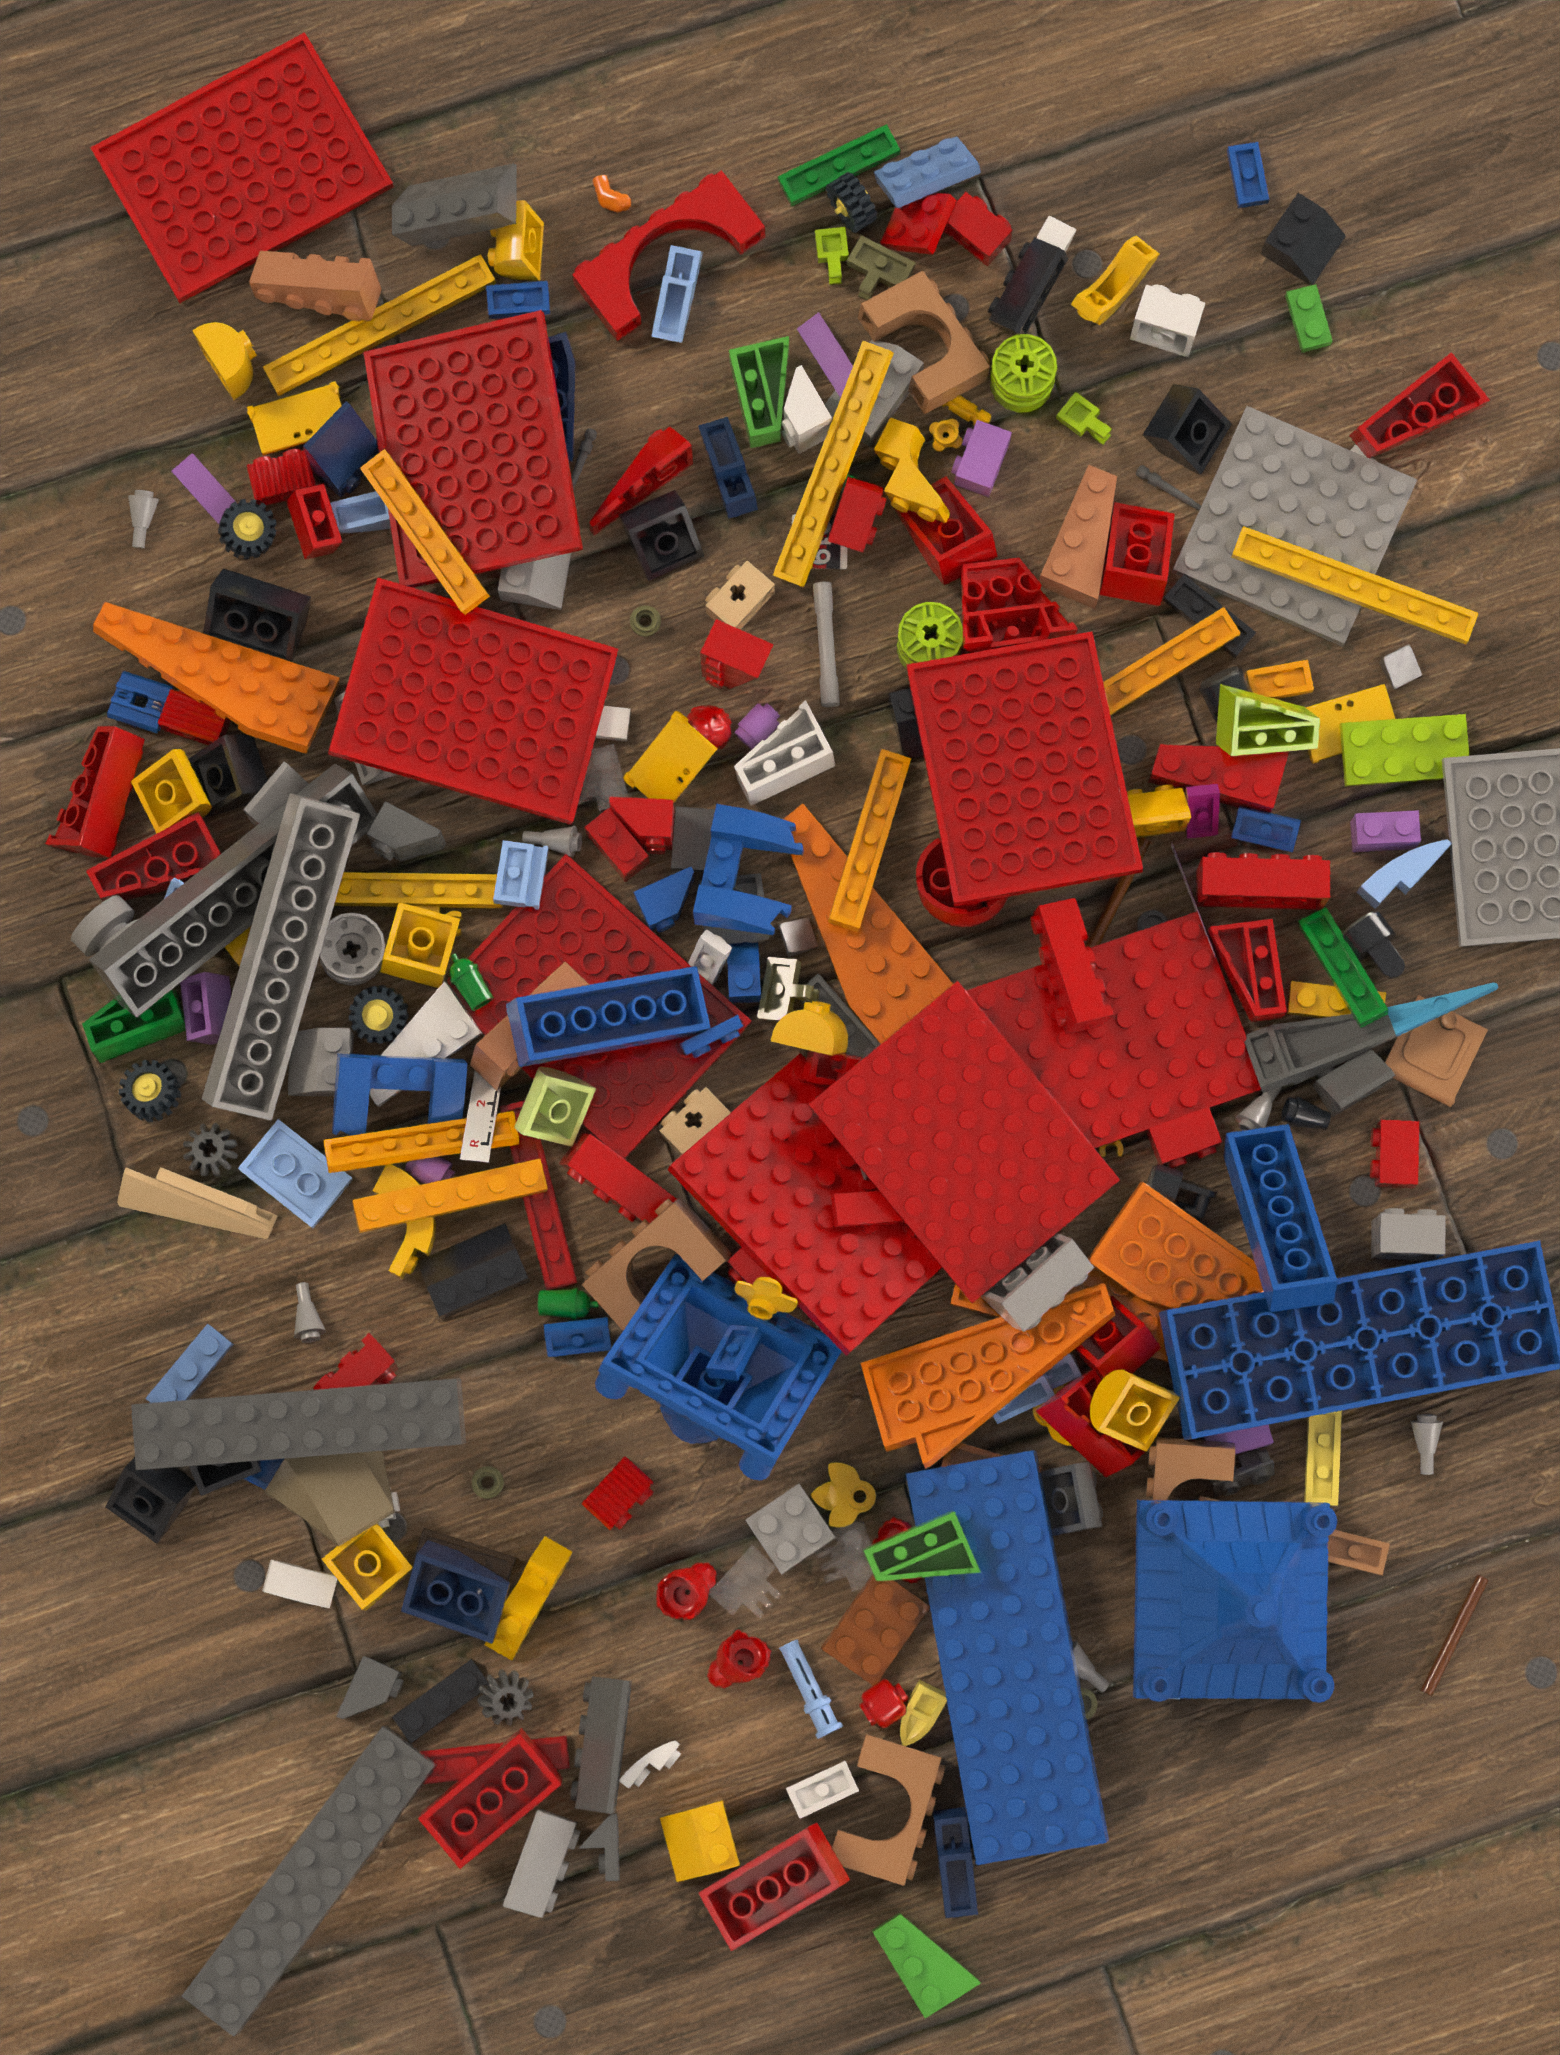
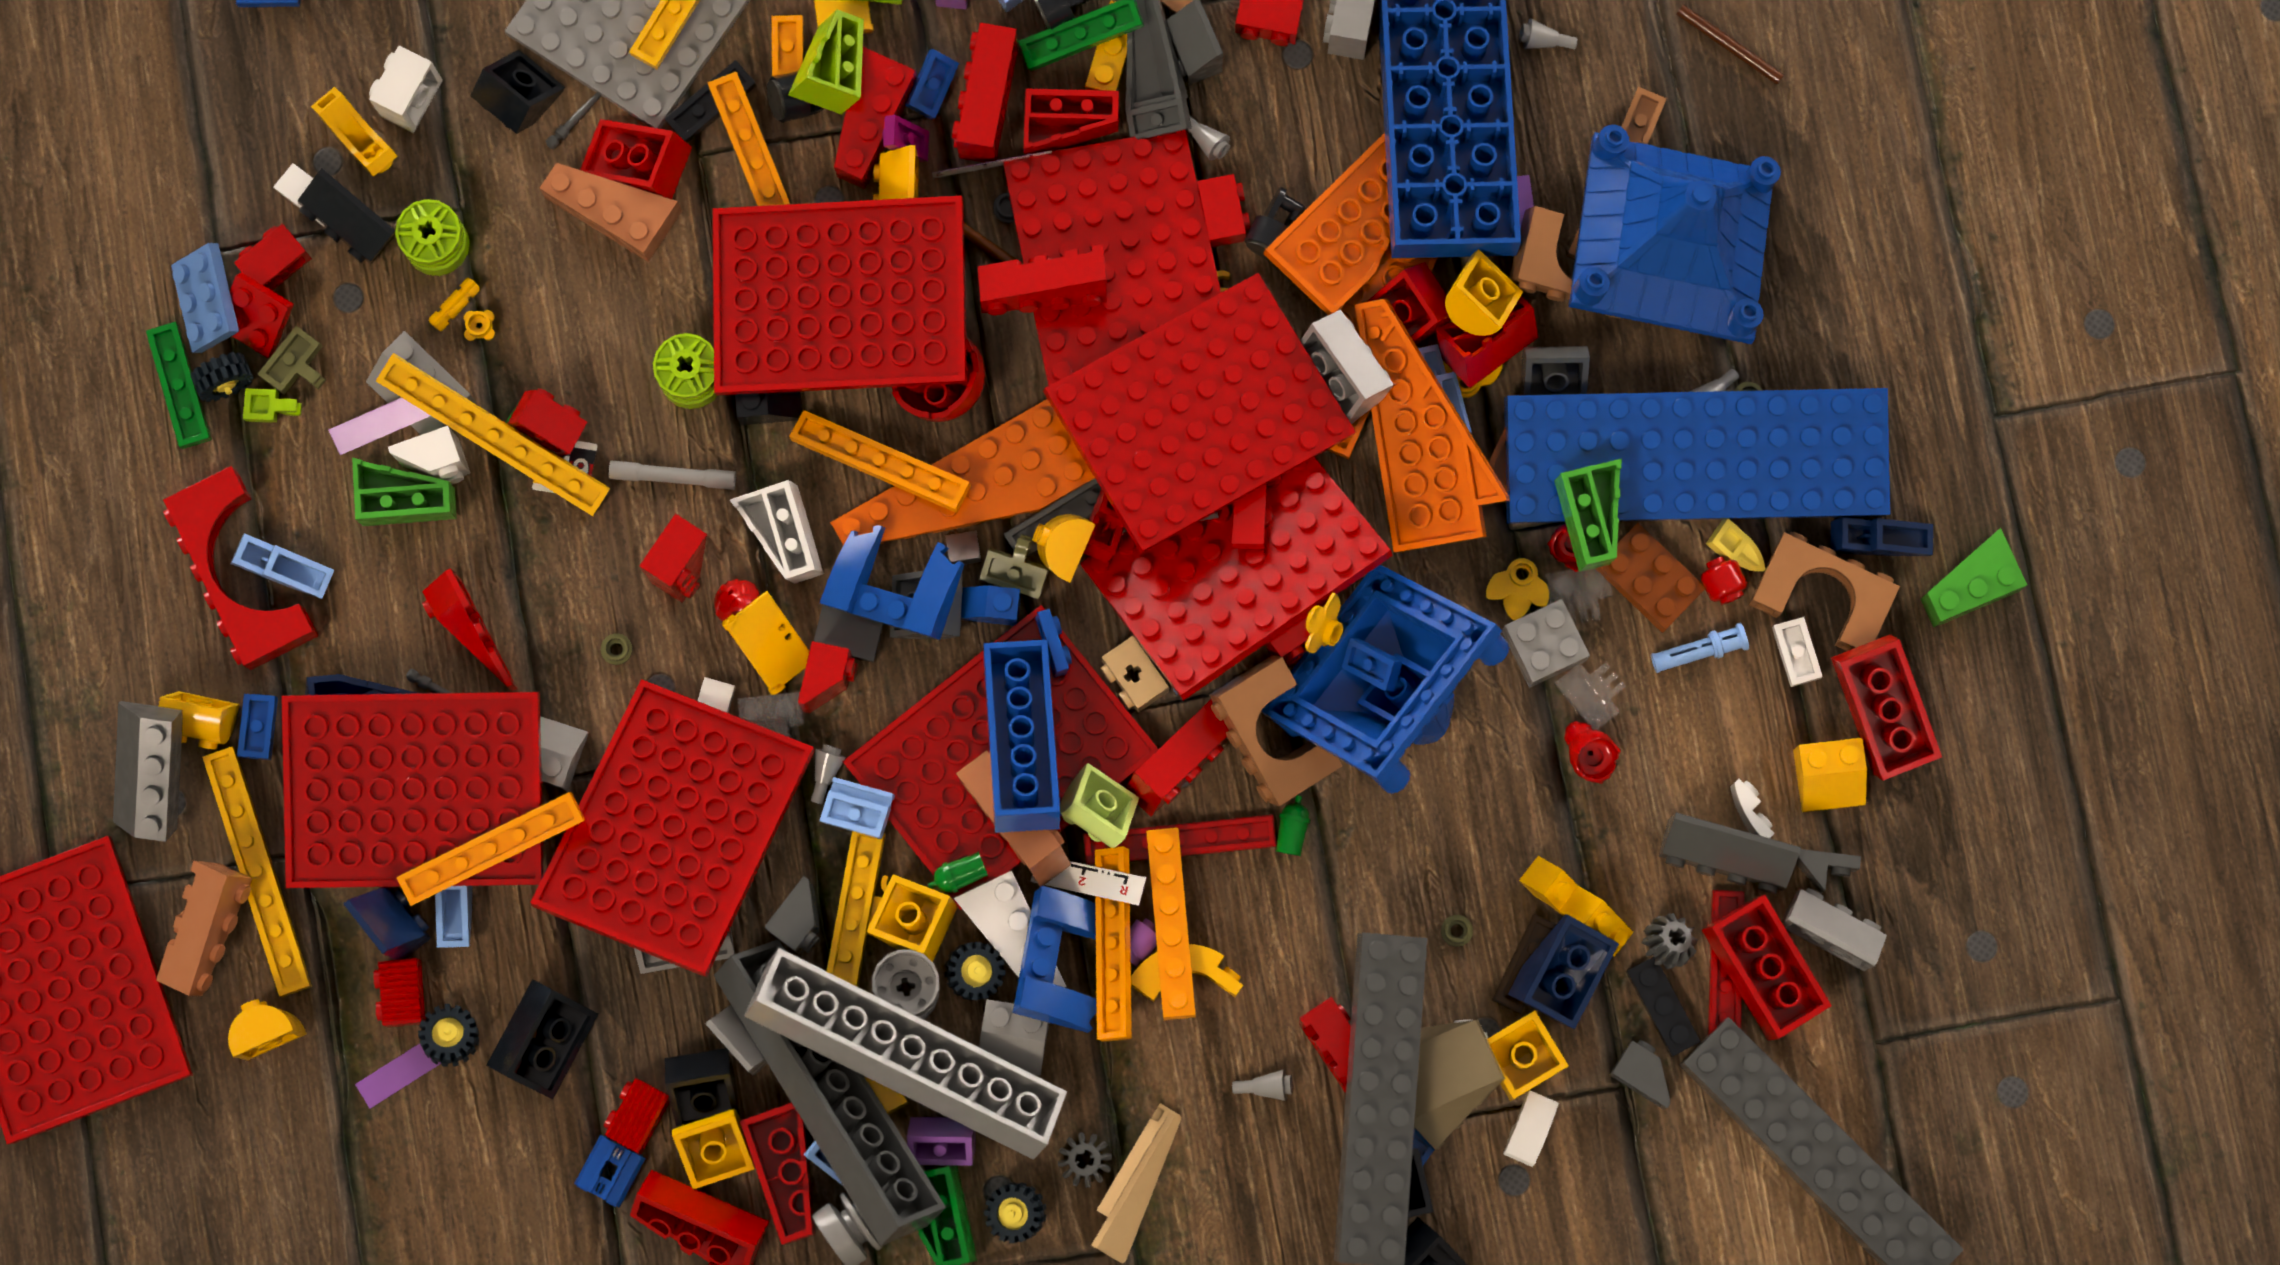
camera: 80 degrees left, 0 degrees up
(142, 510) = (411, 1143): light grey cone -> none
(191, 1367) = (1301, 1210): medium blue plate -> none
(251, 688) = (618, 1051): orange wing -> none
(294, 415) = (335, 969): yellow door -> none
(294, 1174) = (1121, 1078): light blue plate -> none
(314, 521) = (454, 964): red brick -> none
(473, 1271) = (1246, 914): black slope -> none
(577, 1337) = (1327, 821): blue plate -> none
(608, 198) = (167, 620): orange arm -> none
(617, 845) = (842, 709): red brick -> none
(618, 1494) = (1488, 803): red brick -> none
(661, 535) = (531, 618): black slope -> none
(664, 900) = (906, 671): blue slope -> none
(710, 956) = (971, 632): white plate -> none
(728, 467) = (473, 542): dark blue slope -> none
(739, 1647) = (1665, 697): red piece -> none
(741, 579) = (603, 535): tan brick -> none
(757, 725) = (744, 554): medium lavender brick -> none
(907, 487) = (528, 365): yellow arch -> none
(919, 303) = (340, 326): medium nougat arch -> none
(953, 543) = (578, 339): red slope -> none
(982, 458) = (510, 292): medium lavender brick -> none
(1006, 607) = (670, 290): red wedge -> none
(1082, 415) = (485, 191): lime plate -> none
(1254, 1469) = (1551, 198): dark grey hinge -> none
(1279, 1218) = (1320, 127): blue brick -> none
(1304, 1114) = (1216, 96): black cone -> none
(1323, 1458) = (1552, 135): light yellow plate -> none

